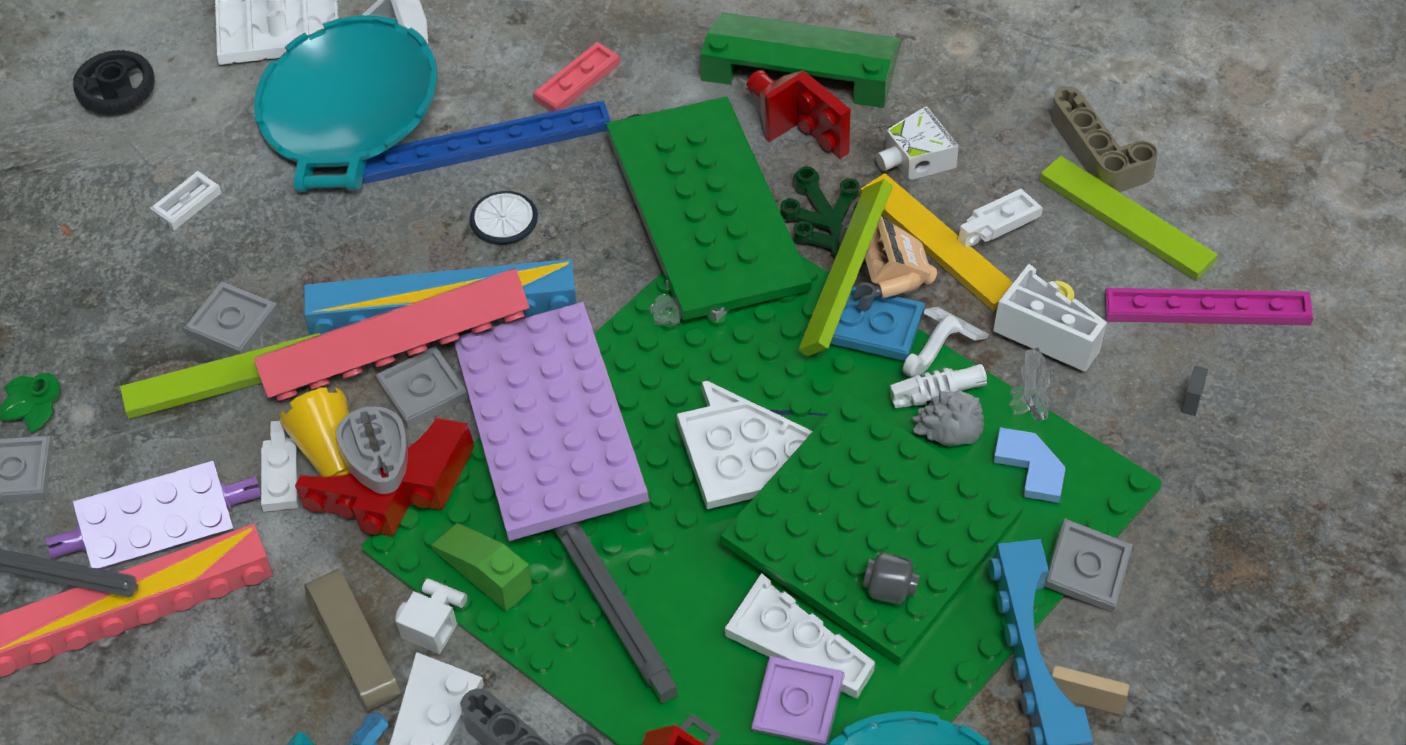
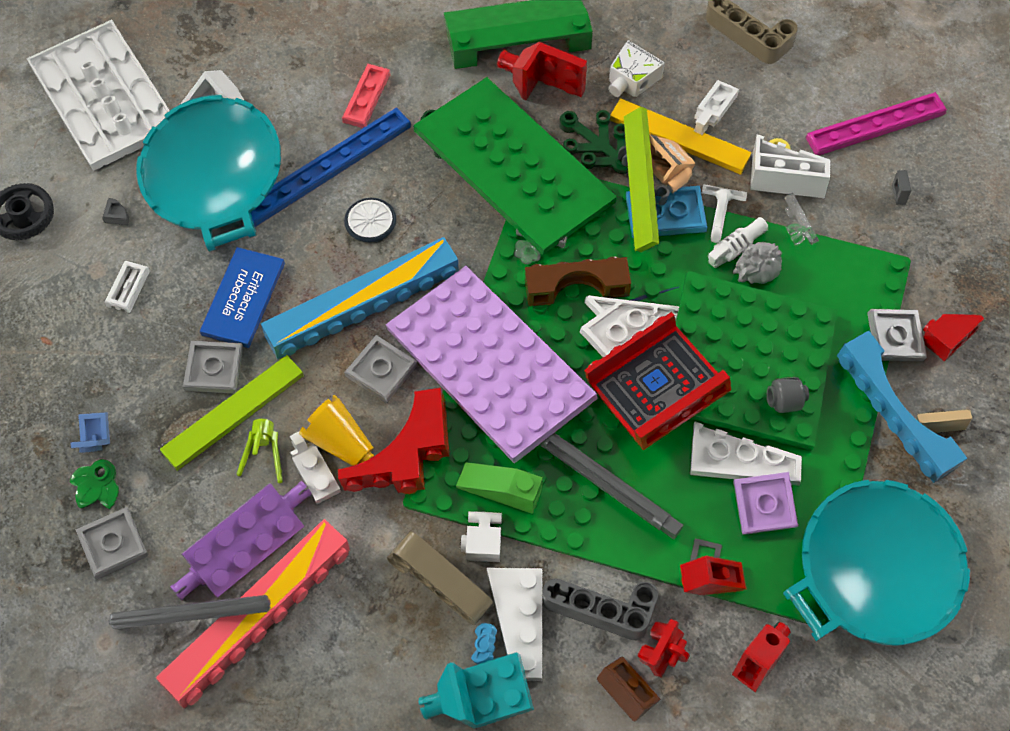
camera: 25 degrees left, 10 degrees up
(57, 343) = (93, 432): none -> medium blue bracket
(217, 117) = (115, 213): none -> dark grey tile
(240, 410) = (261, 435): none -> lime plant
(307, 253) = (242, 297): none -> blue tile
(359, 456) = (385, 445): light grey piece -> none
(391, 333) = (346, 338): coral brick -> none
(668, 350) = (607, 276): none -> reddish brown arch
(730, 502) = (656, 381): none -> panel
(1029, 451) = (817, 268): light blue tile -> none
(1129, 218) = (794, 77): lime tile -> none
(1164, 588) = (950, 333): none -> red slope

